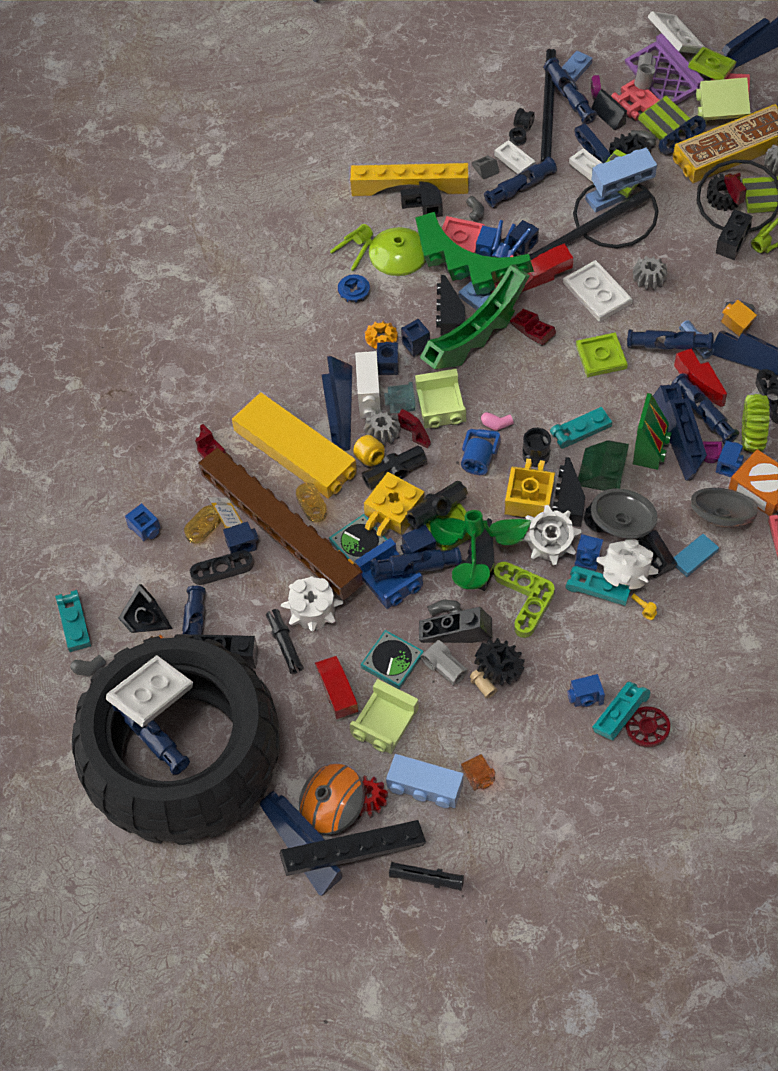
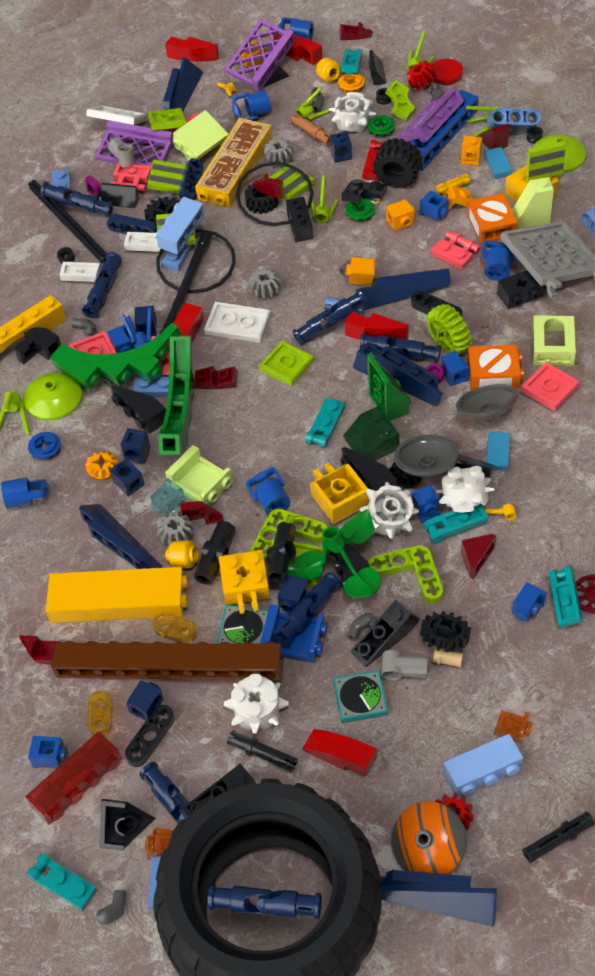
camera: 40 degrees left, 5 degrees down
(143, 555) = (73, 778): none -> clear red brick
(149, 691) = (229, 867): white tile -> none
(225, 511) = (111, 689): white sticker -> none
(302, 313) = (19, 492): none -> blue piece
(352, 847) = (486, 864): black plate -> none
(367, 383) = (134, 504): white brick -> none
(384, 717) = (401, 743): yellowish green panel -> none
(473, 485) = (288, 517): none -> lime beam
(486, 167) = (63, 291): dark grey slope -> none
(496, 423) = (257, 464): bright pink arm -> none
(524, 119) = (59, 240): black wheel -> none
(536, 446) = (310, 457): black wheel -> none
(588, 622) = (476, 552): none -> dark red slope

